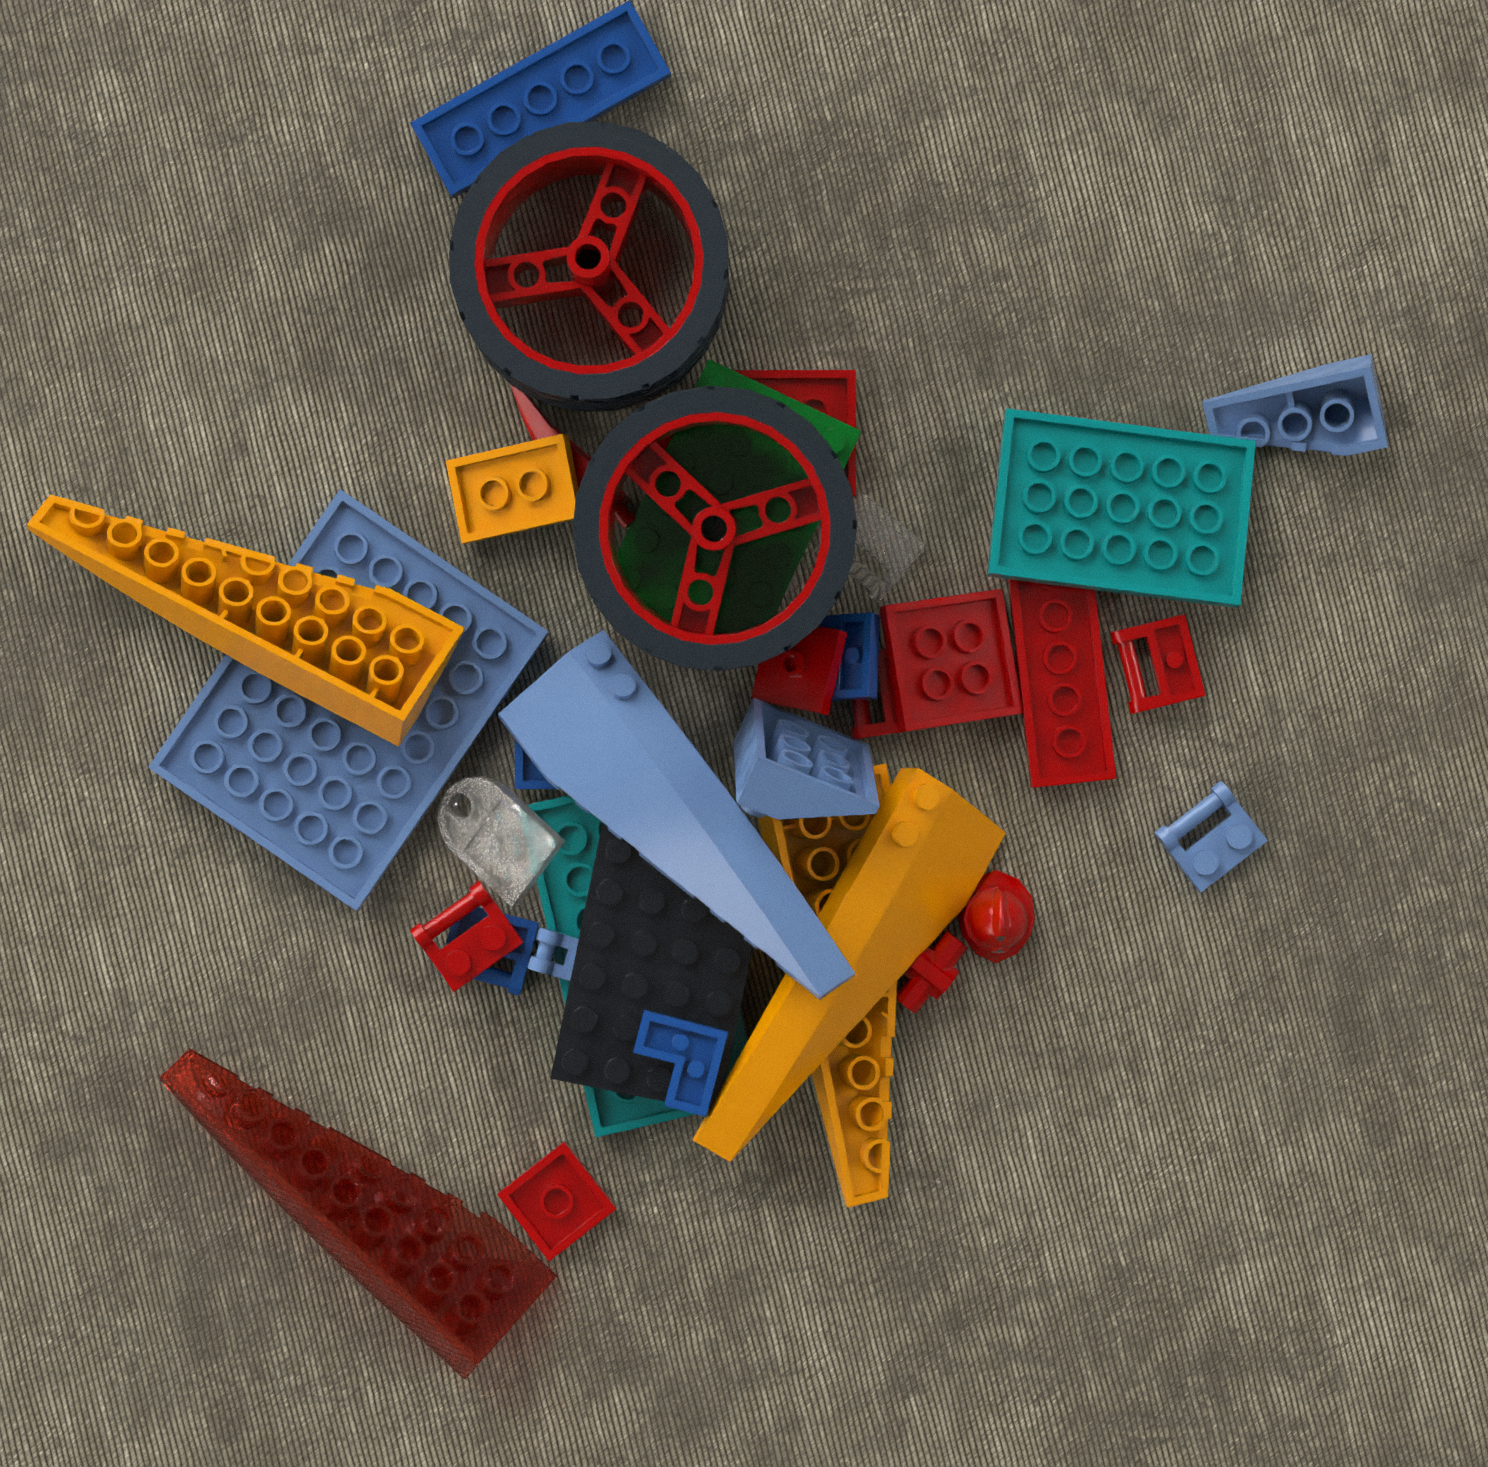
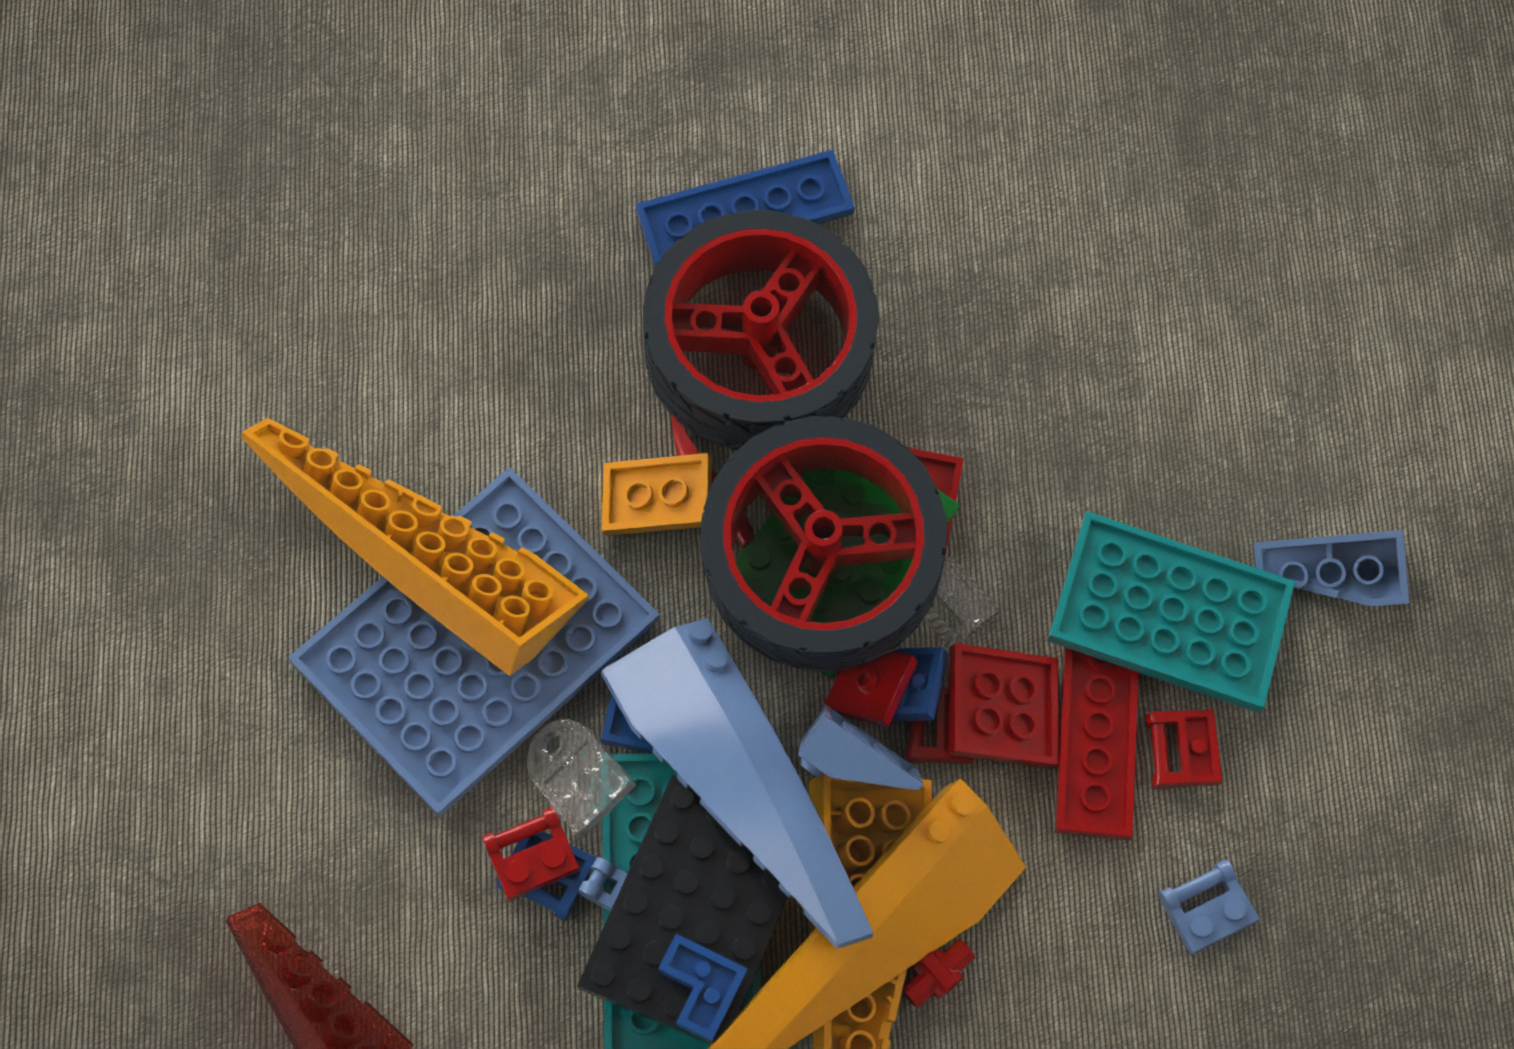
camera: 10 degrees right, 20 degrees down
(997, 917) = (1005, 940): red piece -> none

